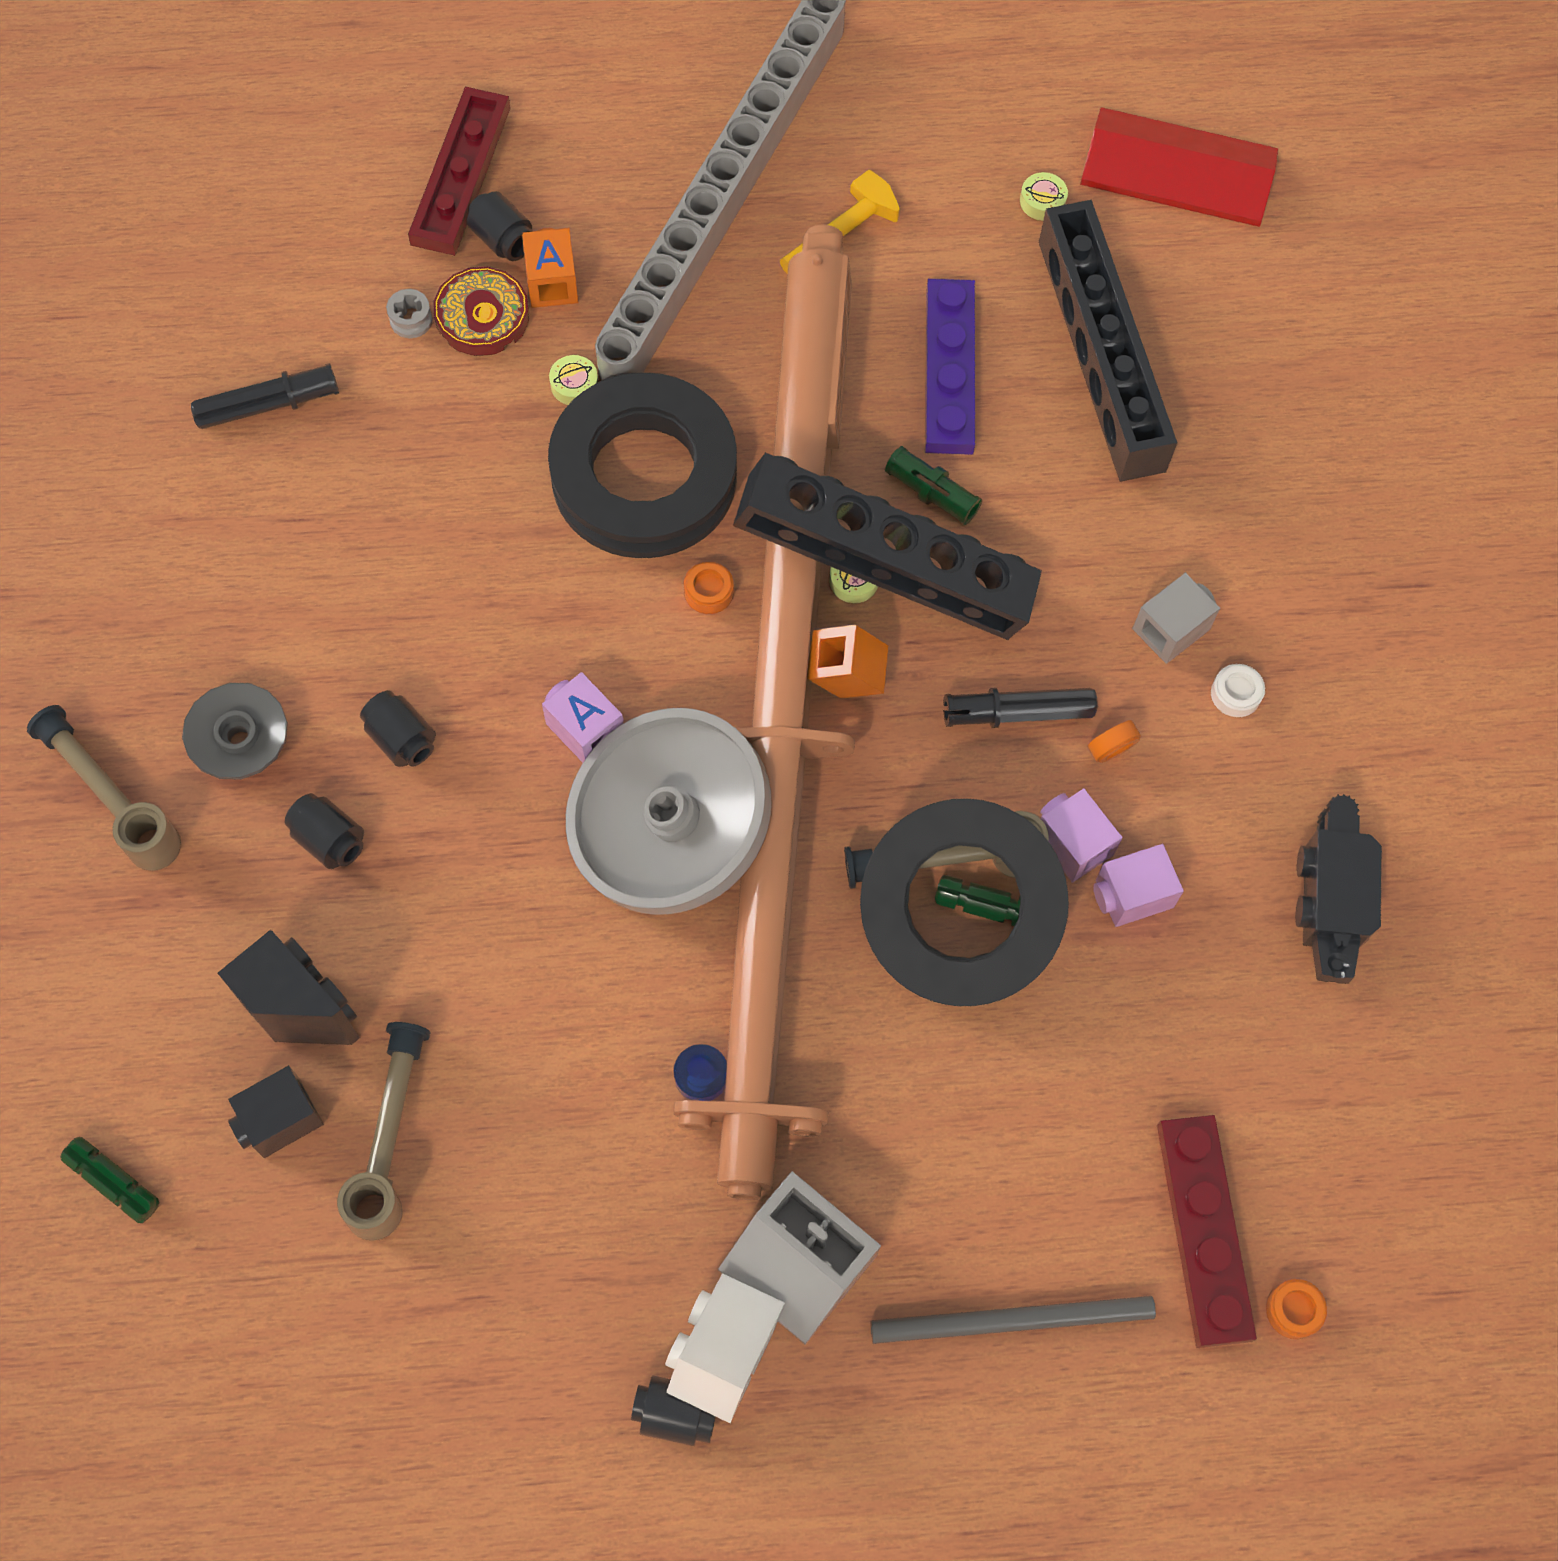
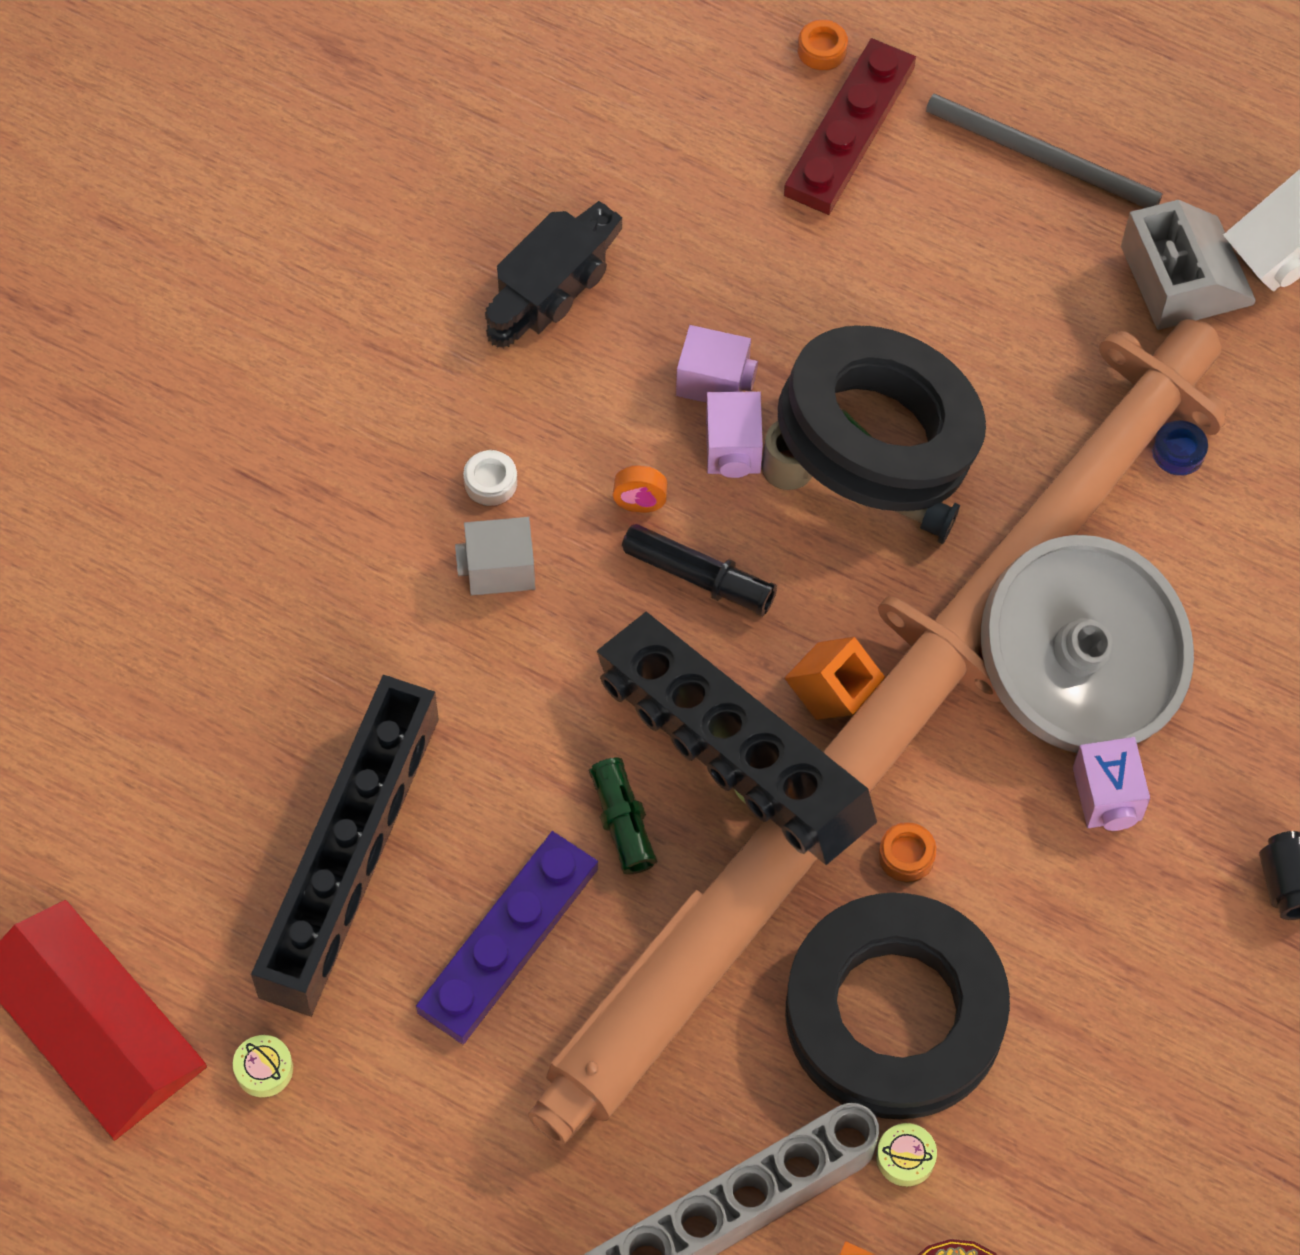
camera: 145 degrees left, 5 degrees down
(873, 197) = (440, 1176): yellow piece -> none

